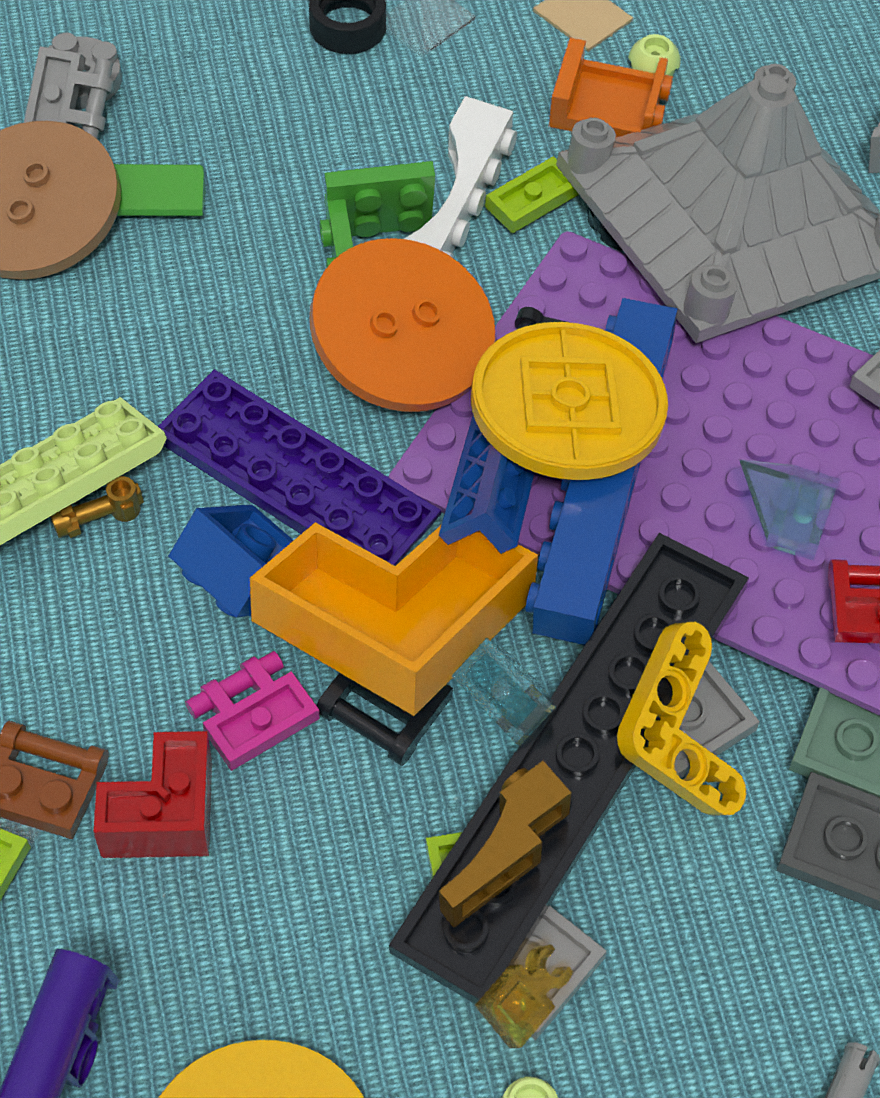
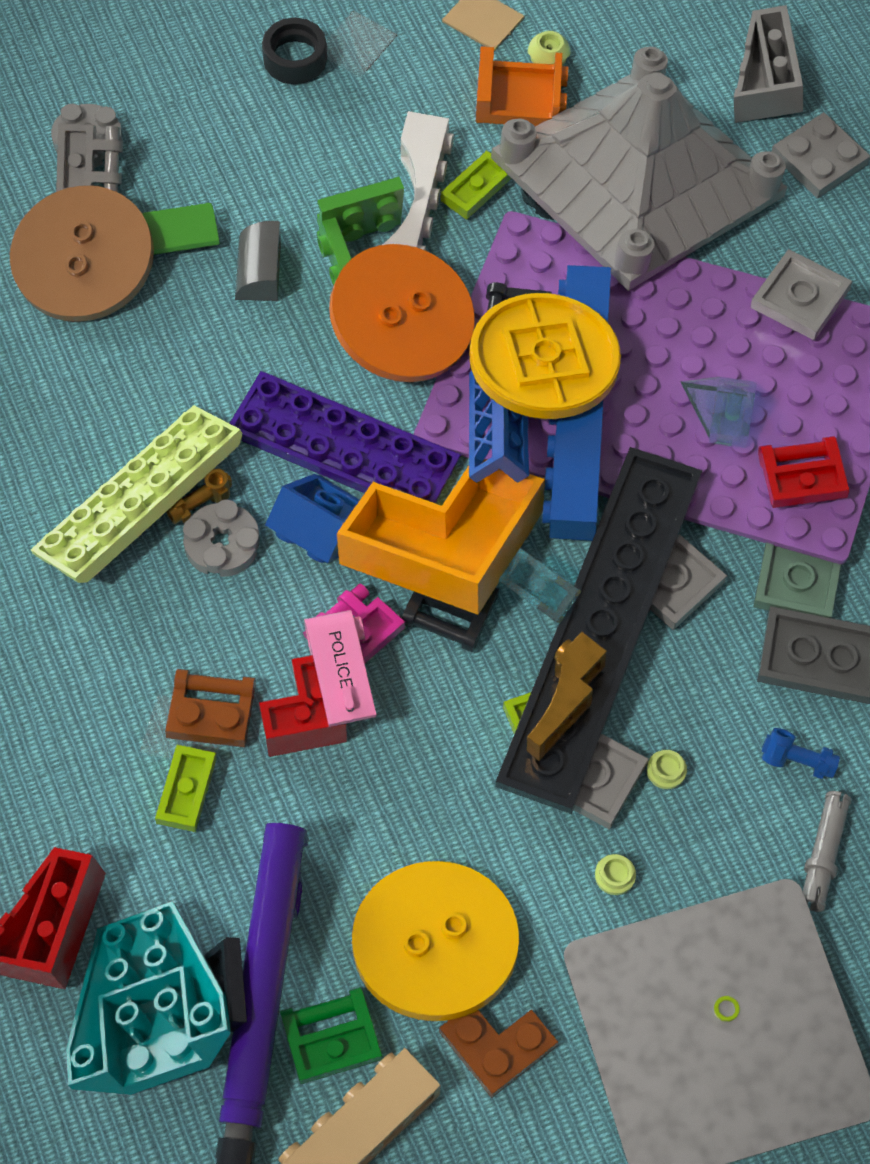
camera: 10 degrees left, 5 degrees up
(106, 541) = (222, 518): none -> light grey plate
(214, 754) = (340, 666): none -> bright pink door
(246, 243) = (259, 262): none -> dark grey brick
(518, 998) = (594, 801): clear yellow plate -> none
(630, 970) = (666, 769): none -> yellowish green plate
(665, 736) = (663, 598): yellow beam -> none
(792, 967) = (780, 747): none -> blue bar

